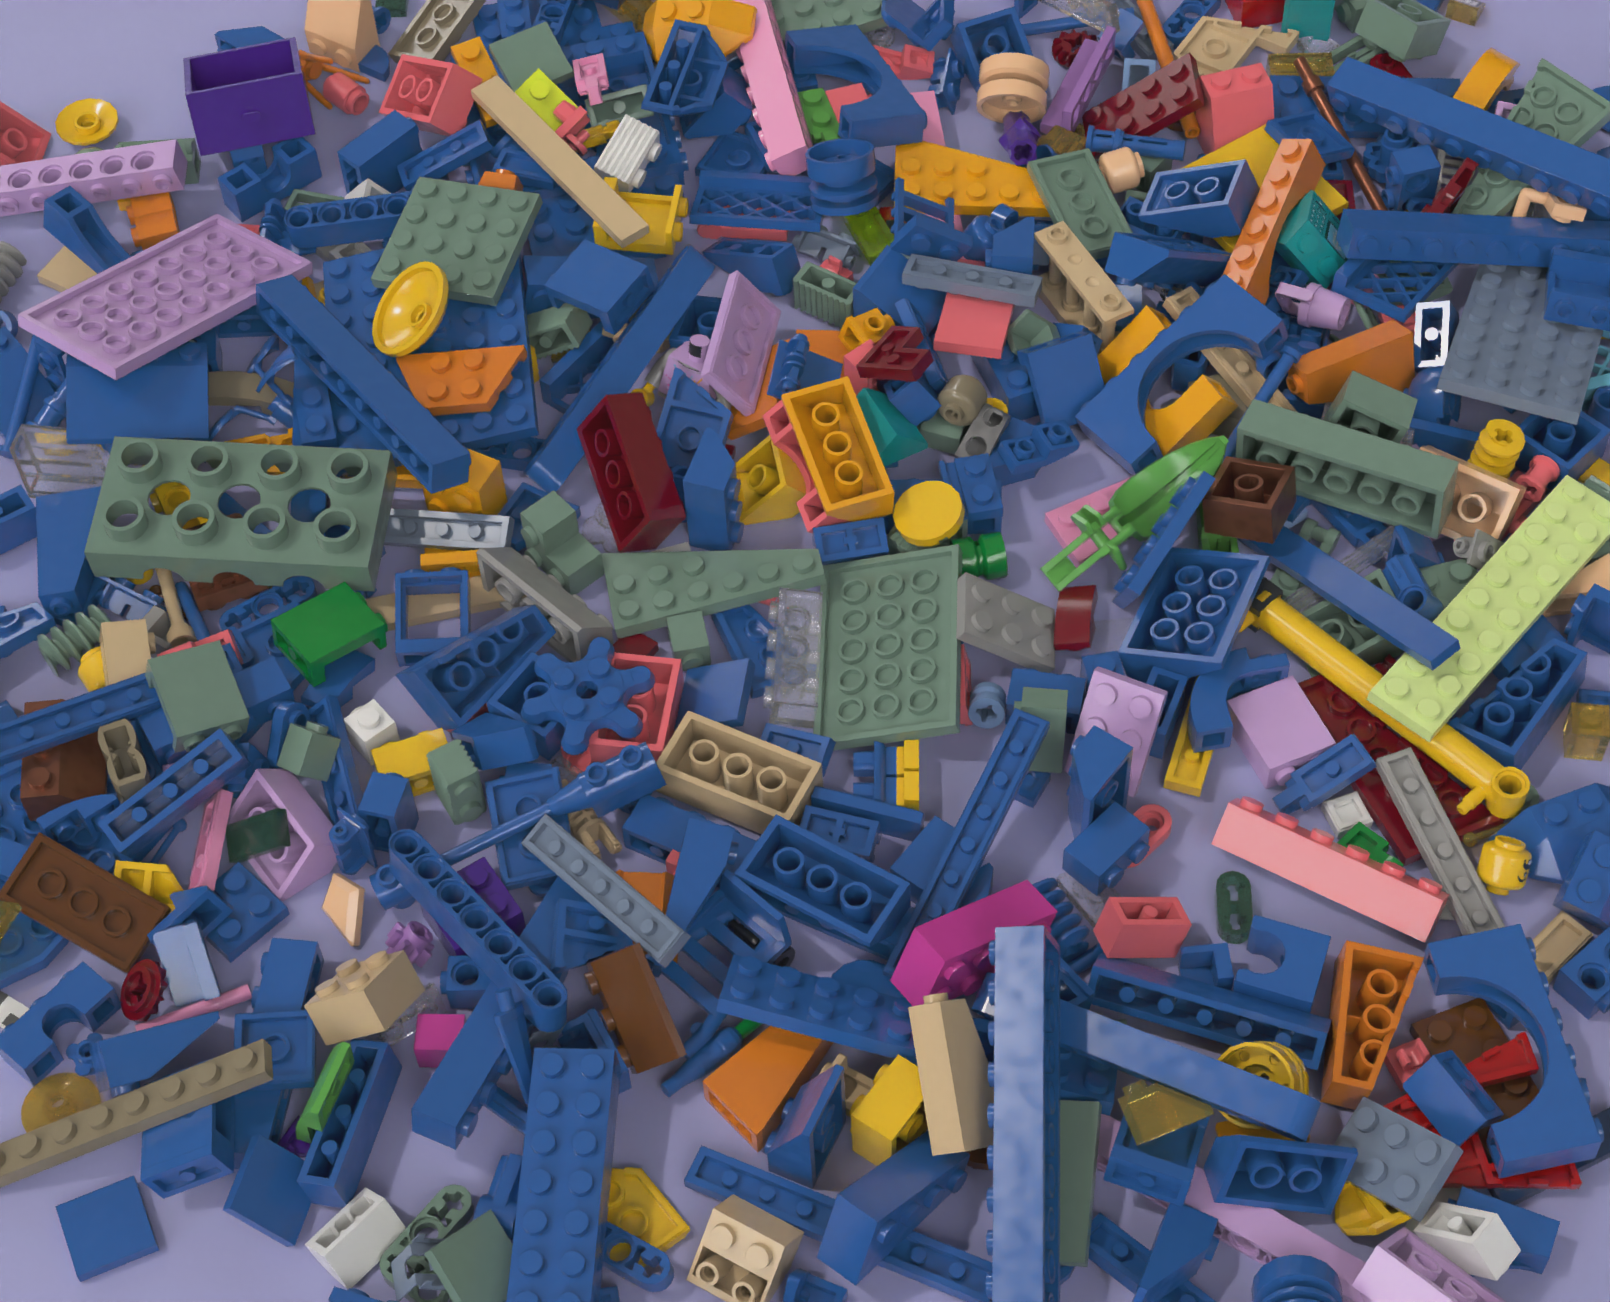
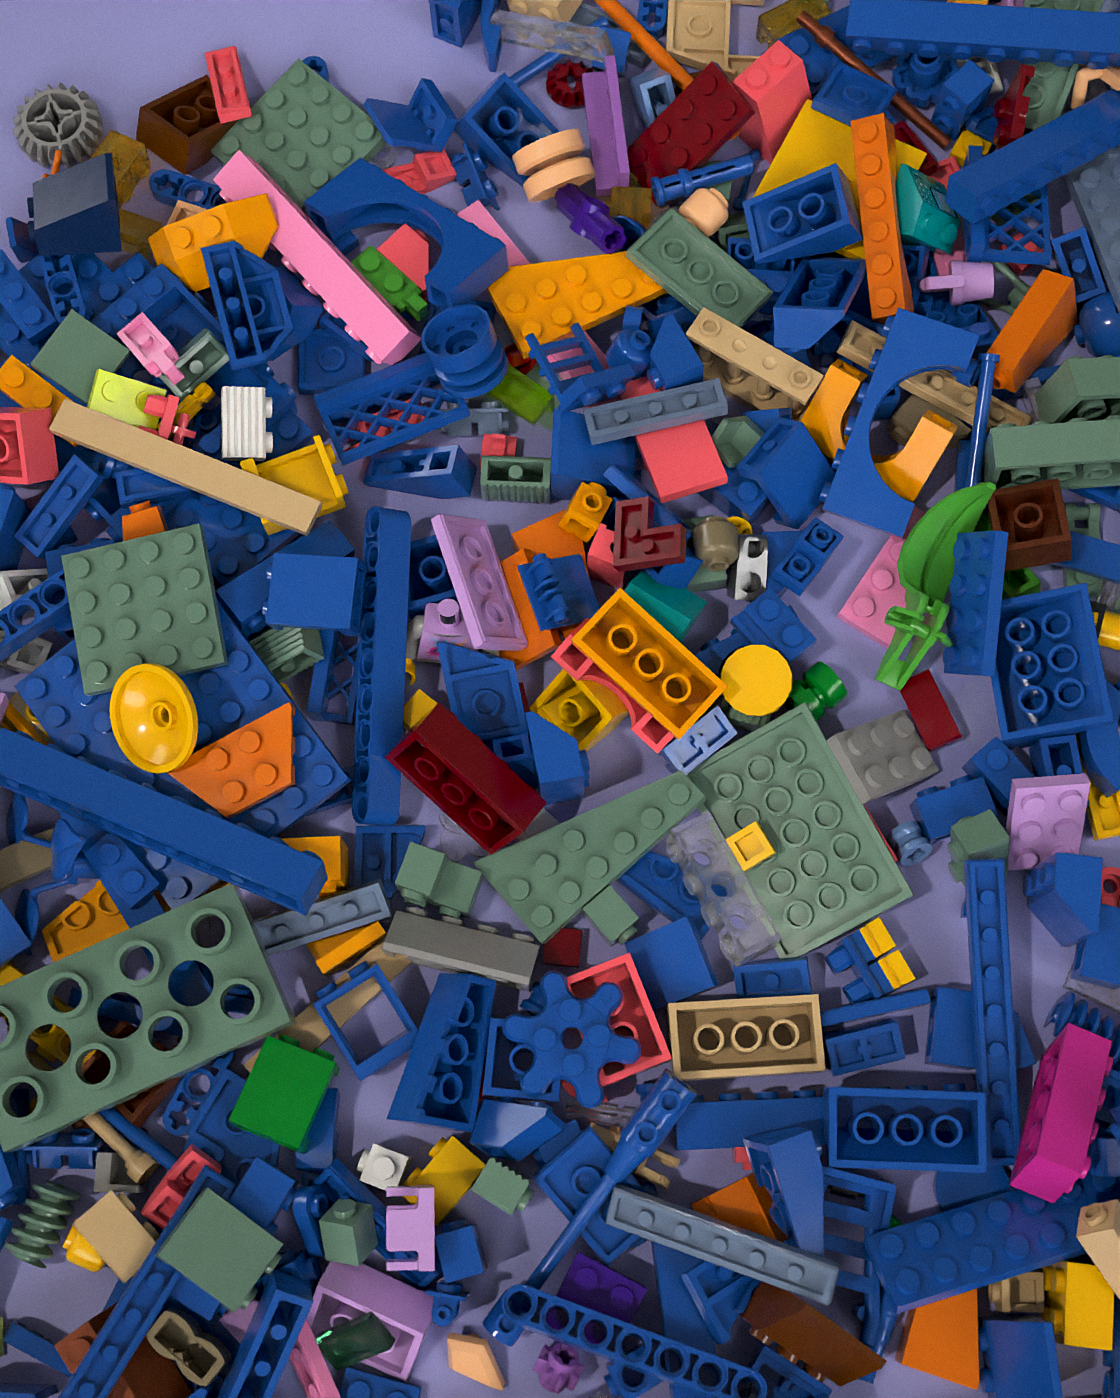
camera: 30 degrees left, 20 degrees up
(367, 746) = (411, 1228): none -> lavender panel
(841, 635) = (750, 846): none -> yellow plate

